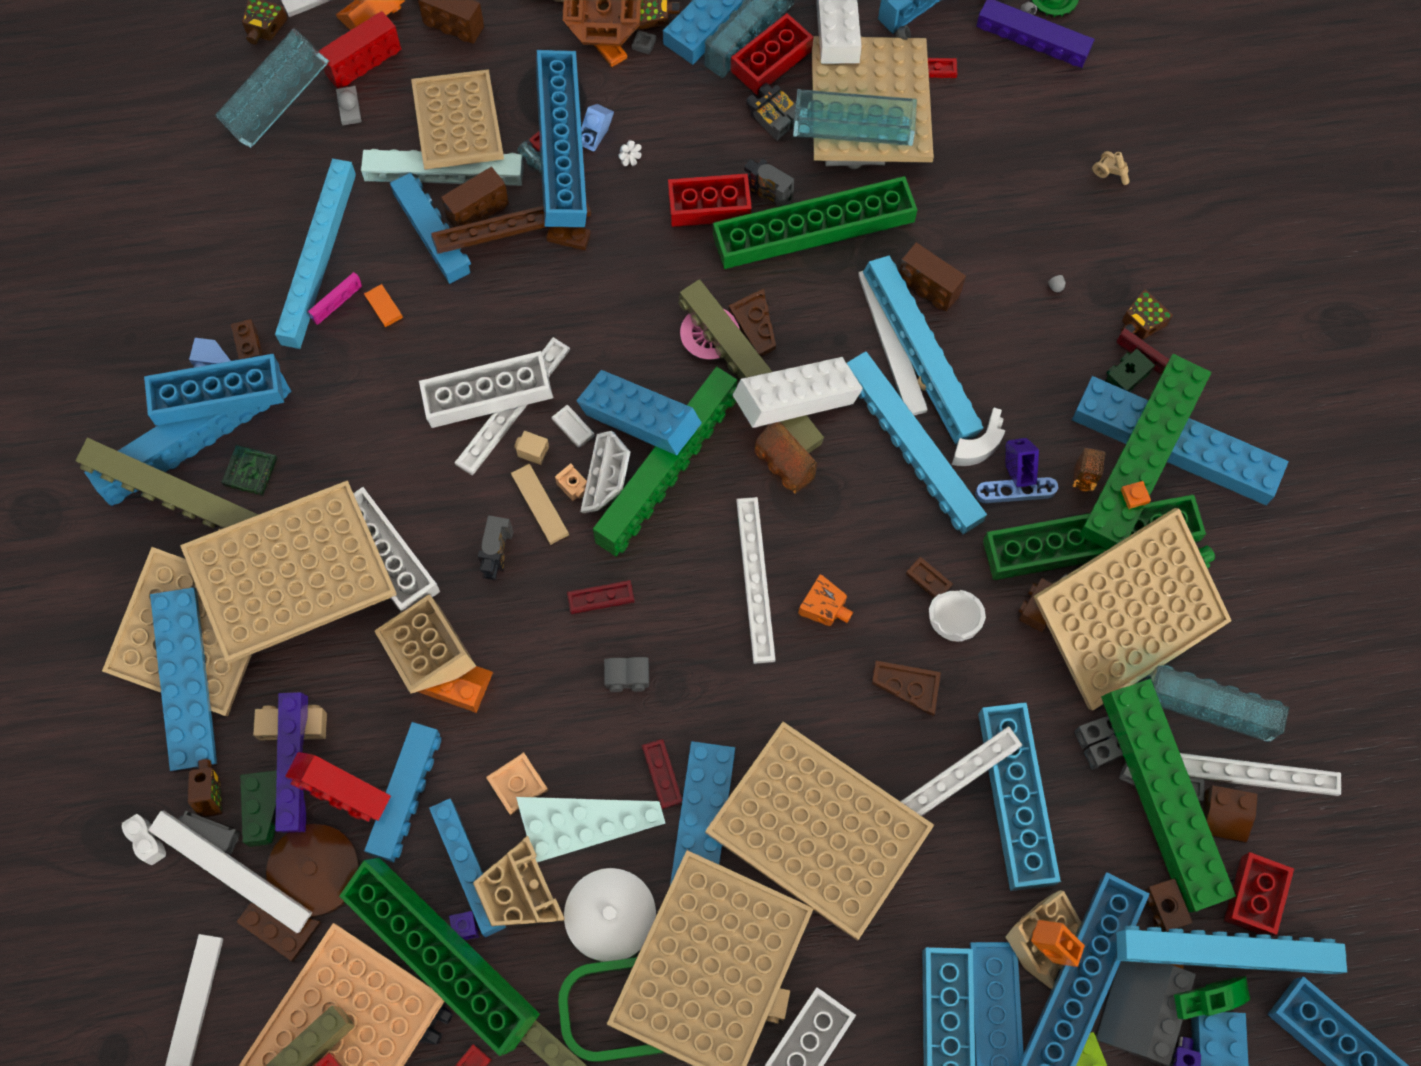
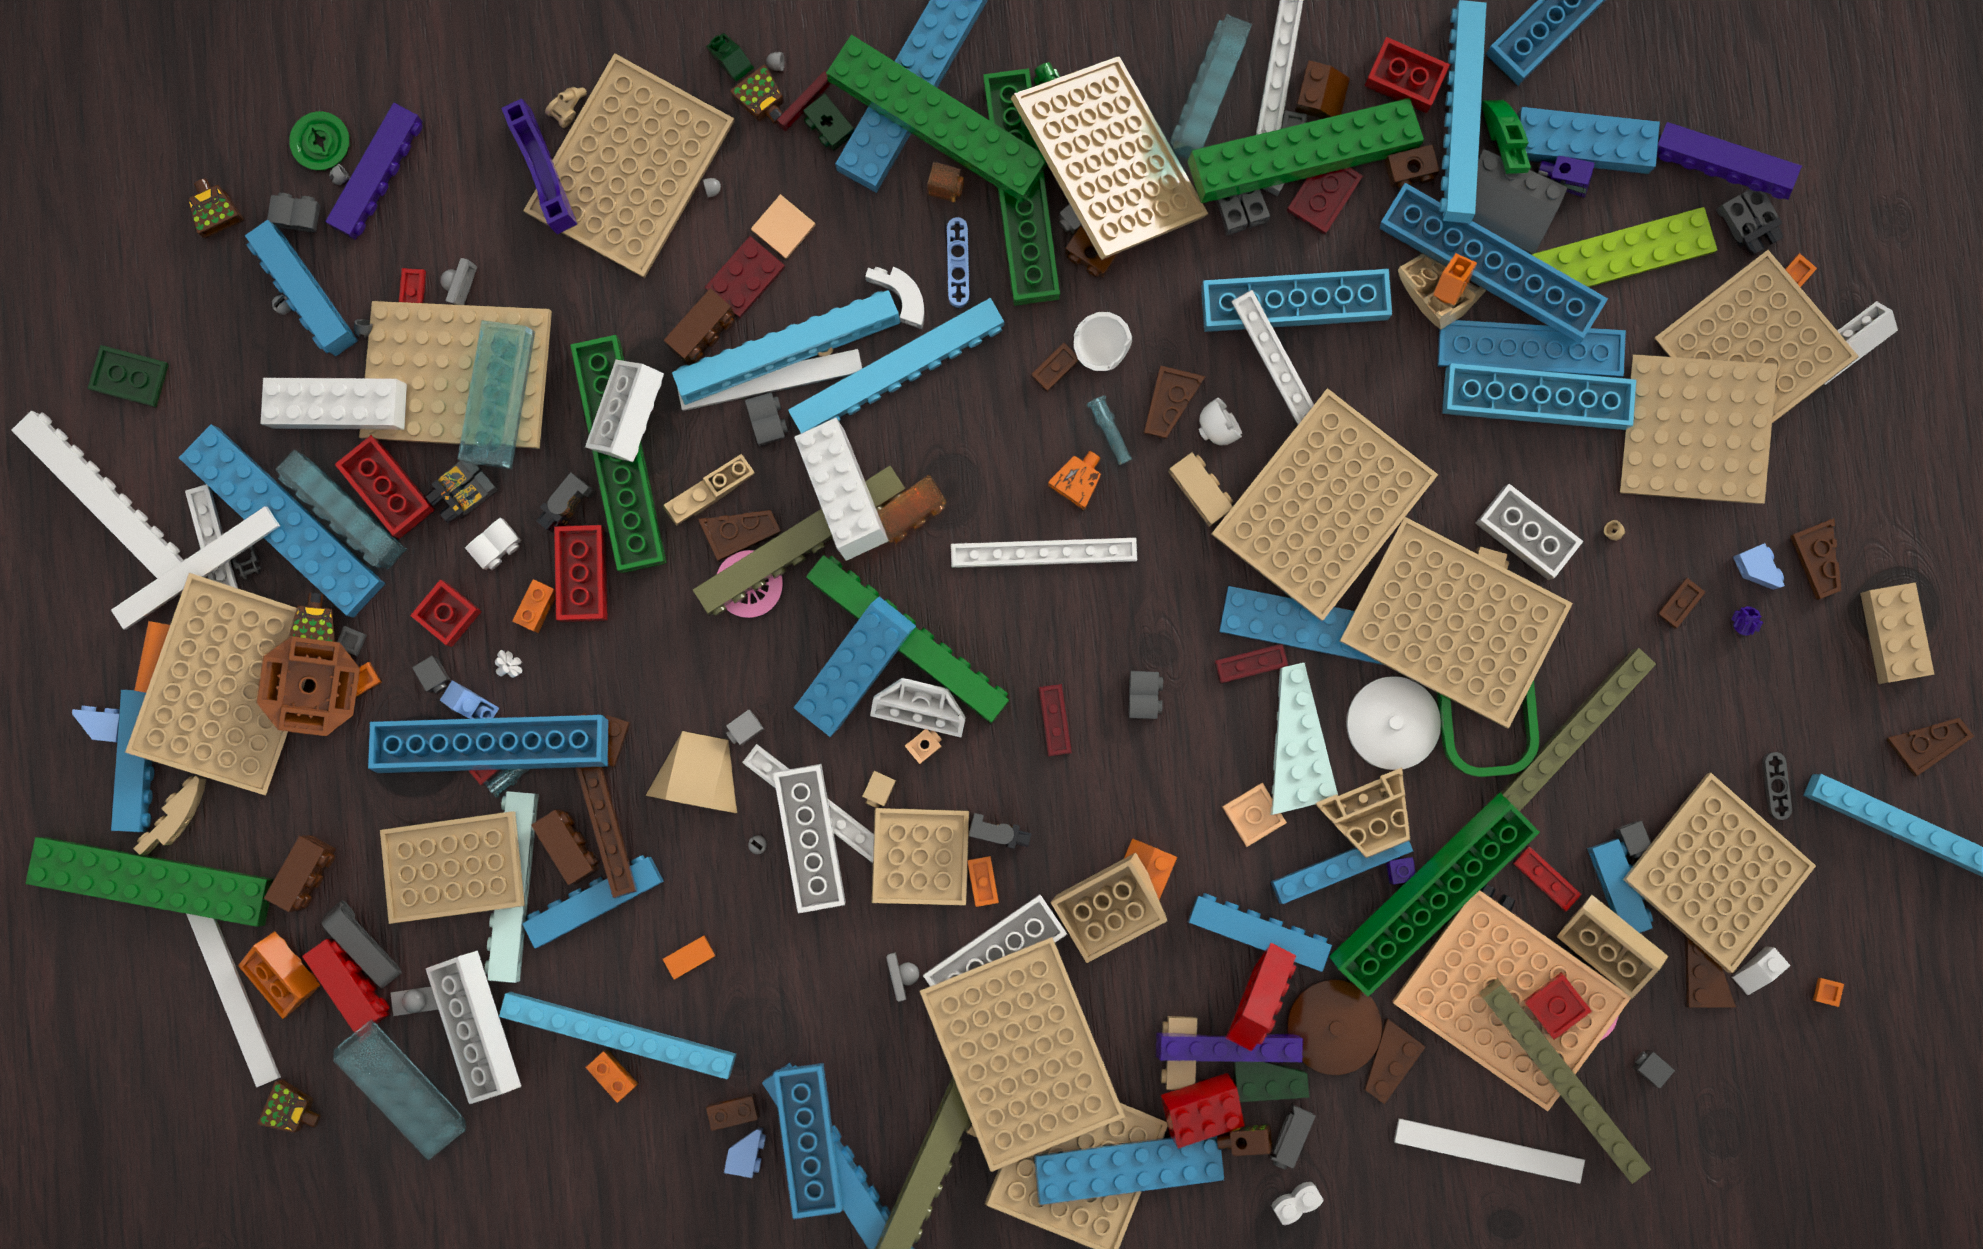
camera: 85 degrees left, 15 degrees up
(230, 871) = (1336, 1110): white tile -> none
(233, 741) = (1202, 1110): none -> red brick
(249, 470) = (885, 1107): clear green tile -> none
(281, 249) = (612, 1075): none -> orange brick
(323, 141) = (473, 1027): none -> white brick
(335, 298) = (679, 1011): dark pink tile -> none
(365, 473) = (905, 974): none -> light grey tile
(393, 58) = (362, 948): none -> dark grey beam
(450, 540) = (983, 881): none -> orange plate
(471, 483) = (920, 856): none -> tan plate
(484, 355) = (759, 839): none -> light grey hinge
(539, 504) = (944, 782): tan tile -> none
(541, 303) = (697, 773): none -> tan wedge
(573, 426) = (853, 743): white tile -> none
(583, 336) = (744, 728): none -> light grey brick
(618, 98) = (432, 675): none -> dark grey brick
(669, 103) = (446, 613): none -> red brick
(678, 166) = (535, 606): none -> orange brick
(730, 136) = (493, 544): none -> white brick
(788, 296) = (709, 490): none -> tan slope
(827, 715) = (1201, 488): none -> tan brick
(851, 217) = (624, 410): none -> white slope
(856, 337) = (765, 418): none -> dark grey brick
(883, 626) = (1106, 420): none -> clear light blue pin
(890, 728) = (1218, 424): none -> white cylinder
(949, 98) = (458, 282): none -> light grey tile
(981, 316) = (745, 276): none -> dark red plate
(1022, 454) = (930, 253): dark purple torso -> none
(1025, 156) = (547, 182): none -> dark purple arch
(1030, 344) = (783, 226): none -> light nougat tile
(1067, 220) = (634, 163): none -> tan plate
(1124, 821) = (1324, 197): none -> dark red plate
(1135, 494) = (994, 137): orange plate -> none
(1175, 290) = (729, 56): none -> dark green slope
(1177, 329) = (776, 61): none -> light grey hinge

